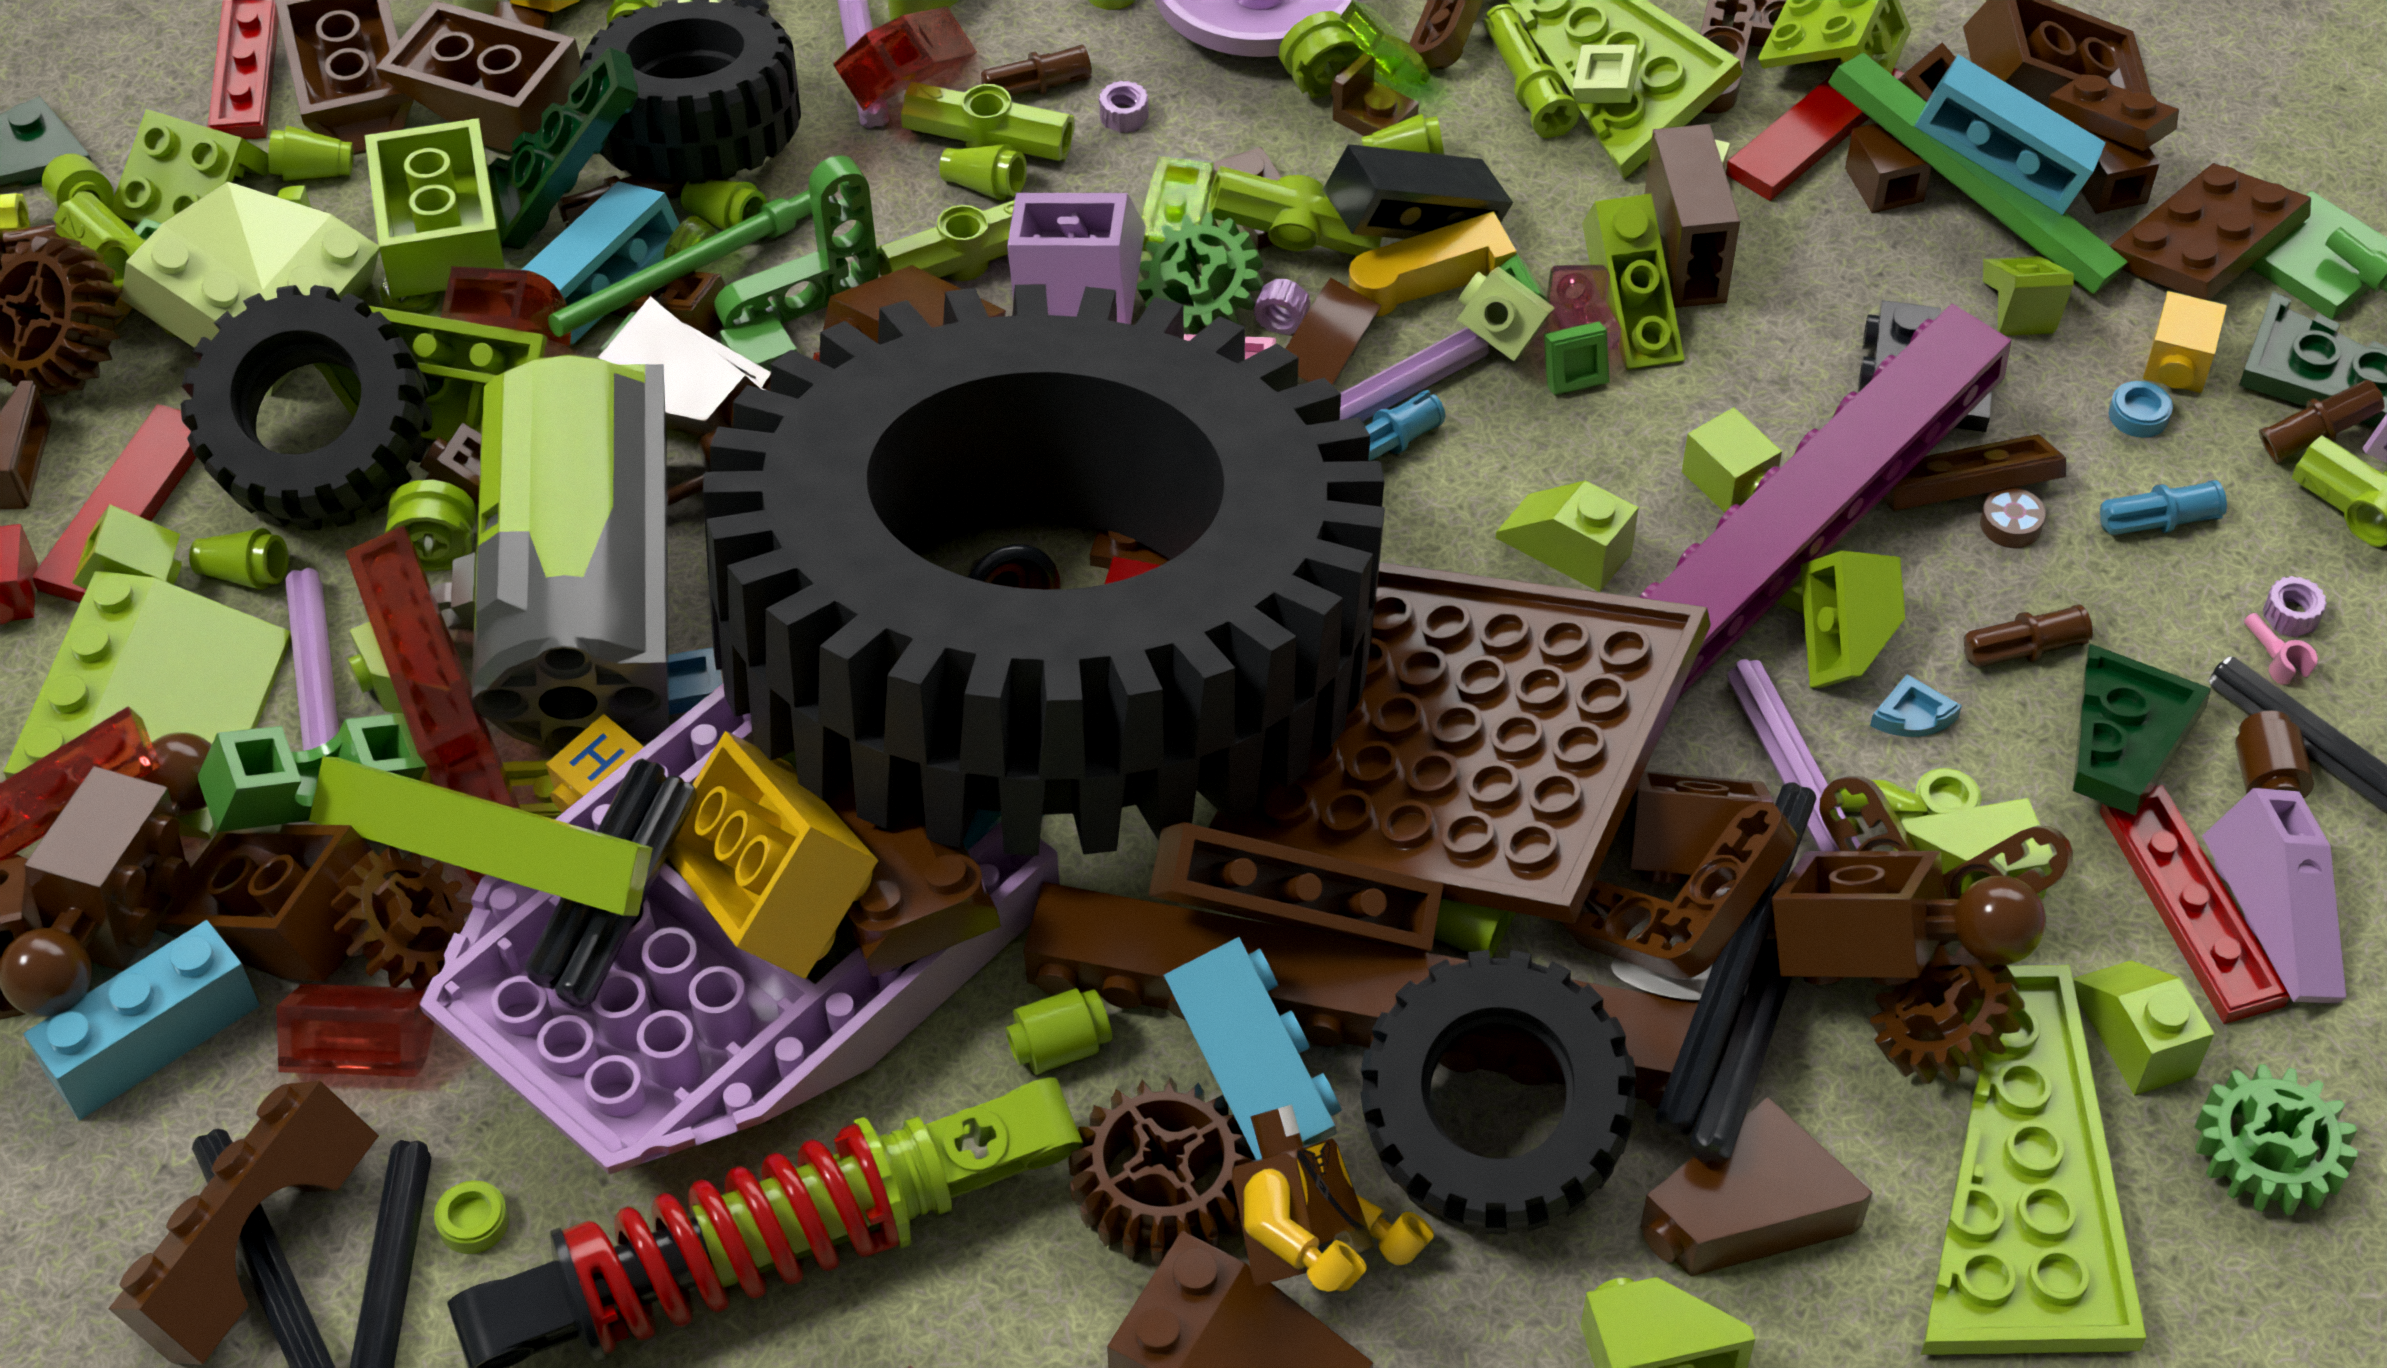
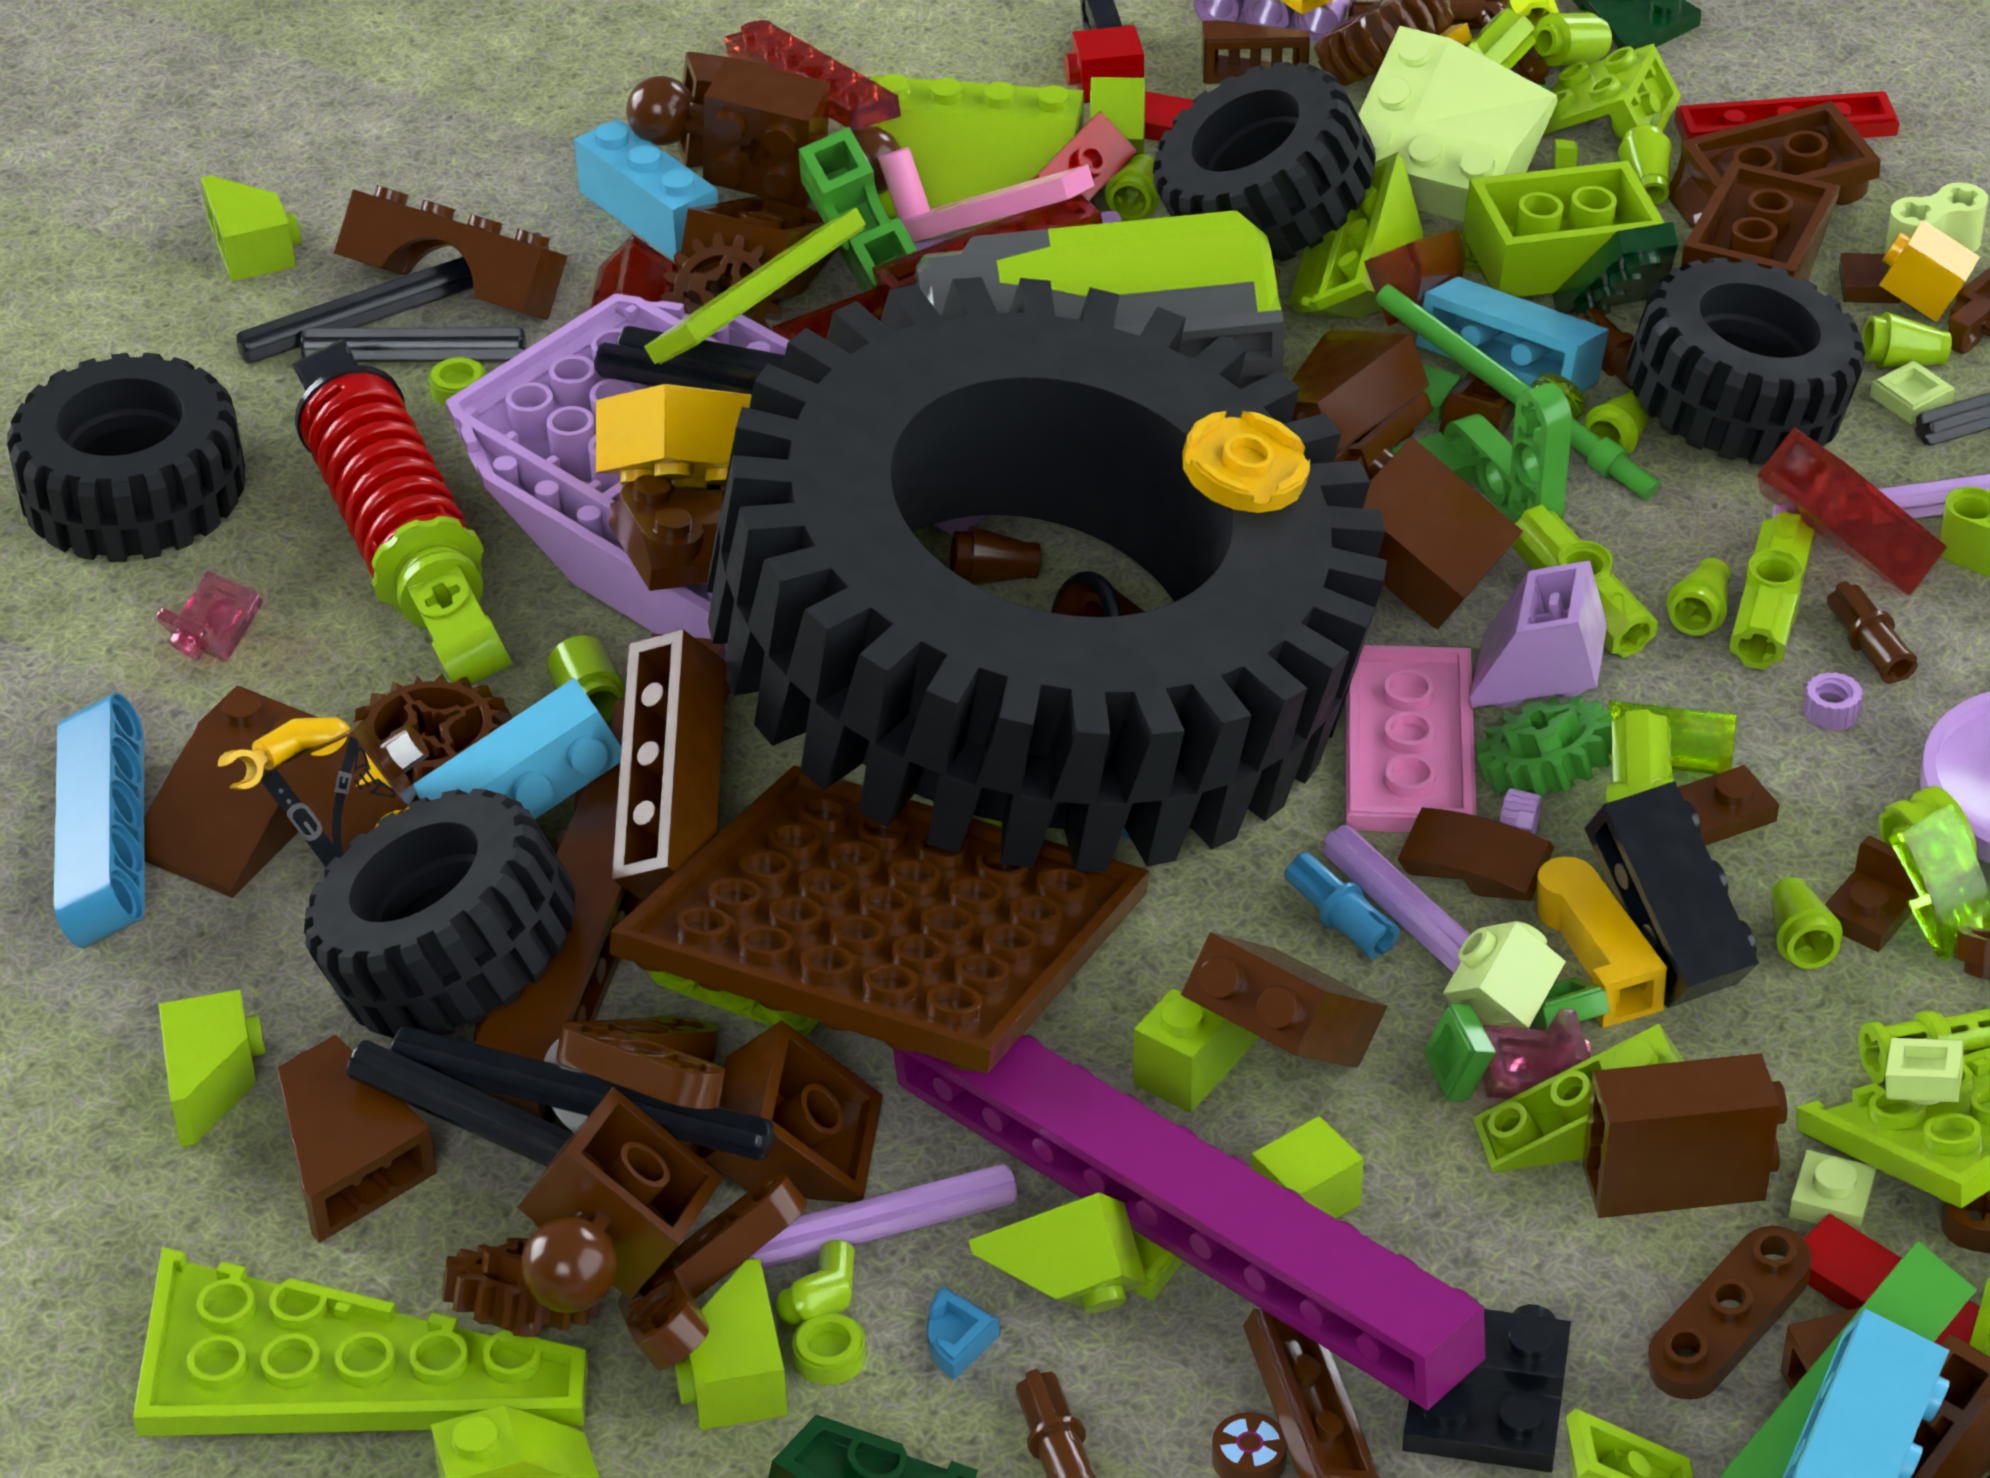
camera: 90 degrees right, 10 degrees down
(222, 585) = (1098, 146): none -> plate
(315, 643) = (925, 223): none -> bright pink piece
(977, 353) = (1246, 461): none -> yellow tile
(1565, 443) = (1283, 1000): none -> reddish brown brick
(1837, 223) = (1726, 1334): none -> reddish brown plate

